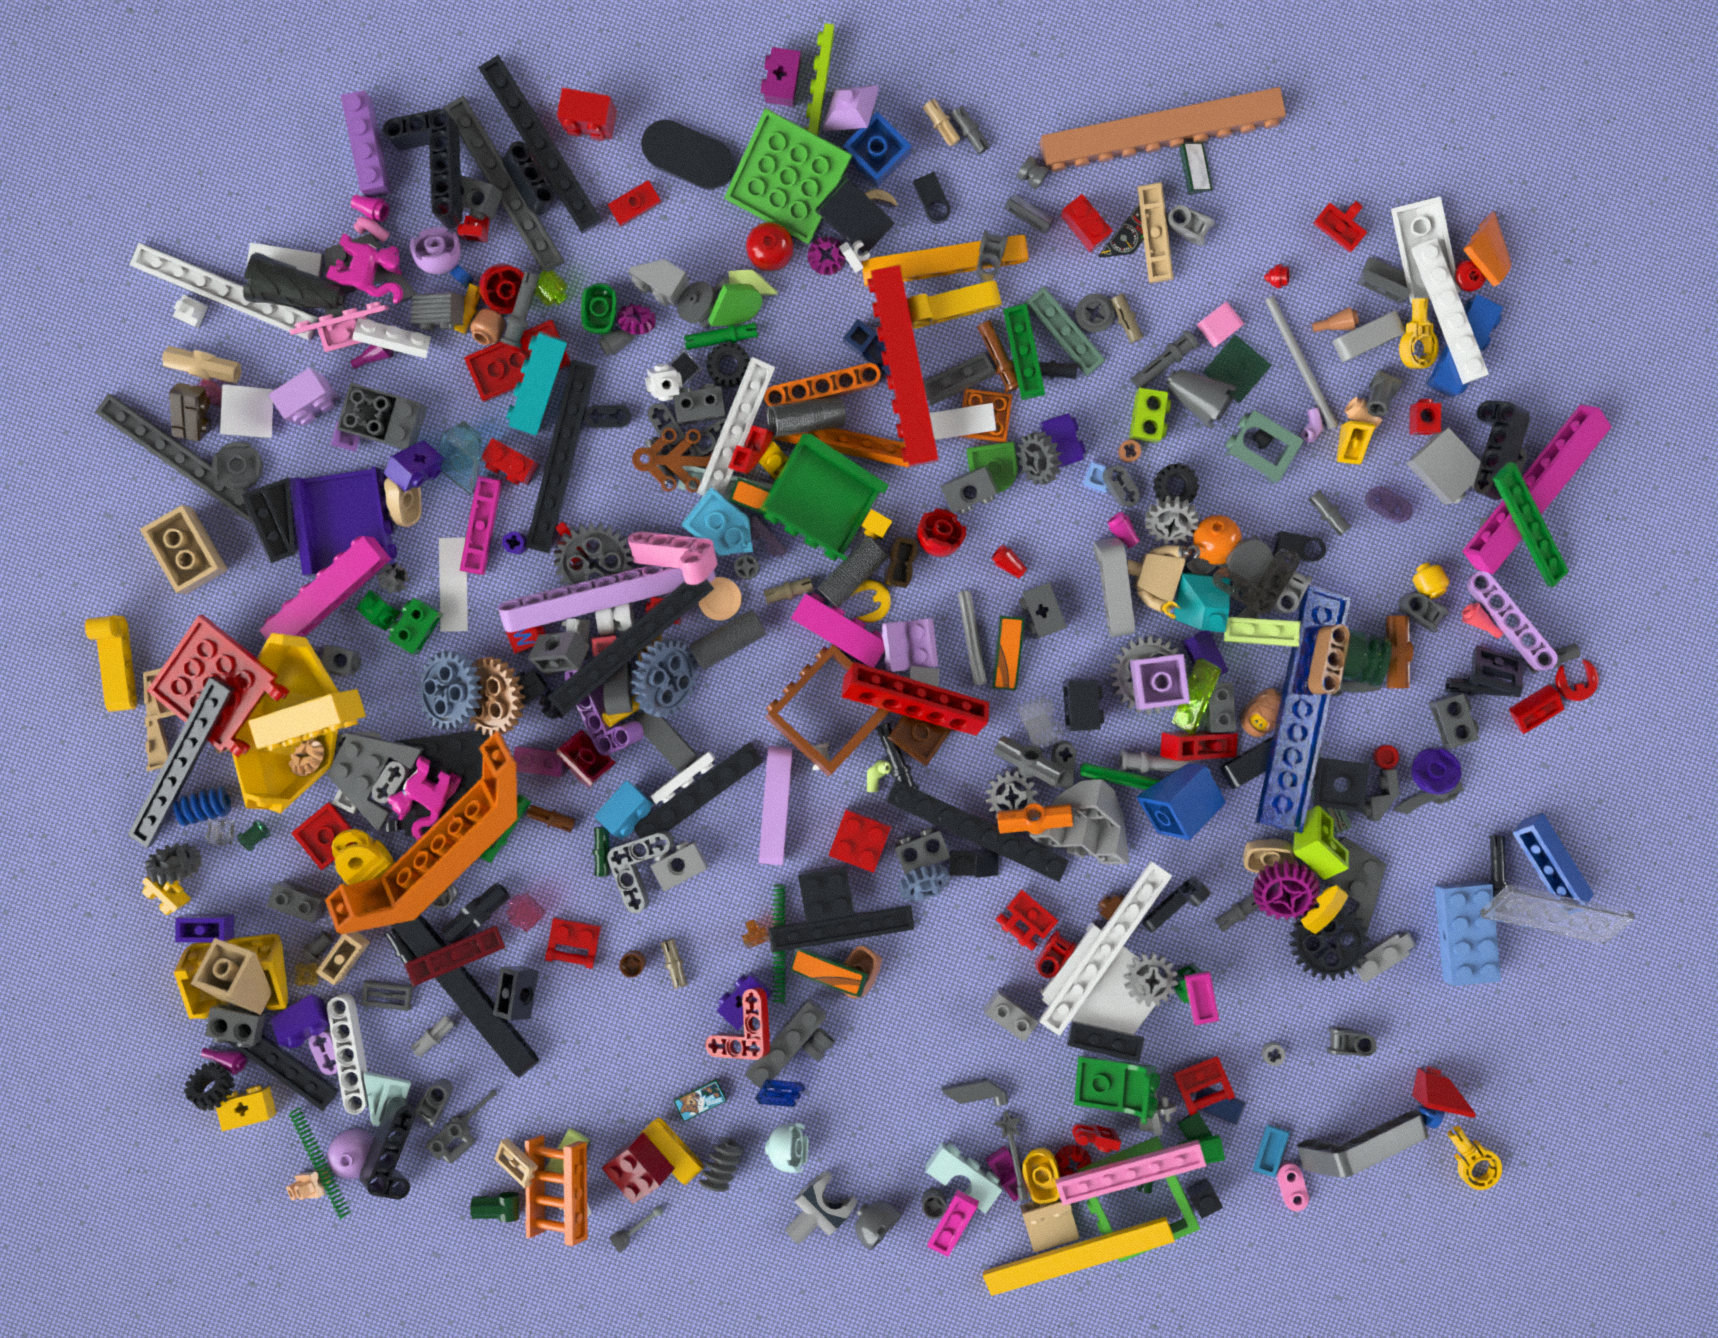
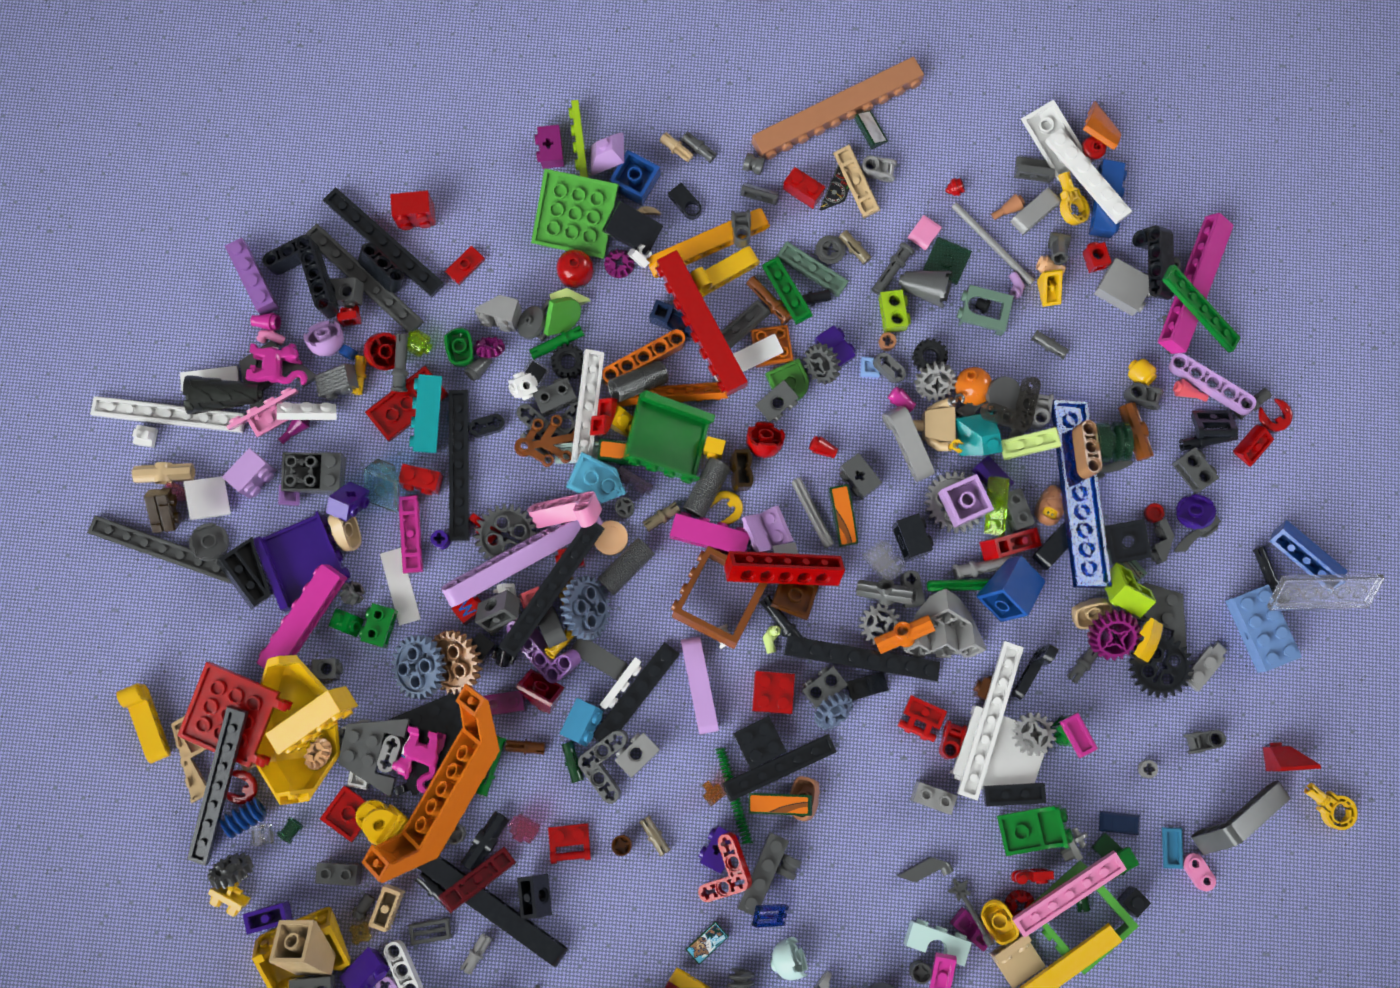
camera: 20 degrees left, 10 degrees down
(184, 549) = (182, 617): tan brick -> none
(218, 775) = (250, 791): none -> red head
(488, 326) = (378, 383): nougat head -> none
(614, 619) = (533, 575): white wheel -> none
(687, 154) = (495, 220): black tile -> none
(1200, 1077) = (1097, 804): red plate -> none
(1297, 543) = (1035, 371): black piece -> none
(1341, 226) = (988, 139): red plate -> none
(1388, 503) = (1090, 326): clear purple plate -> none
(1432, 1117) = (1288, 780): blue tile -> none

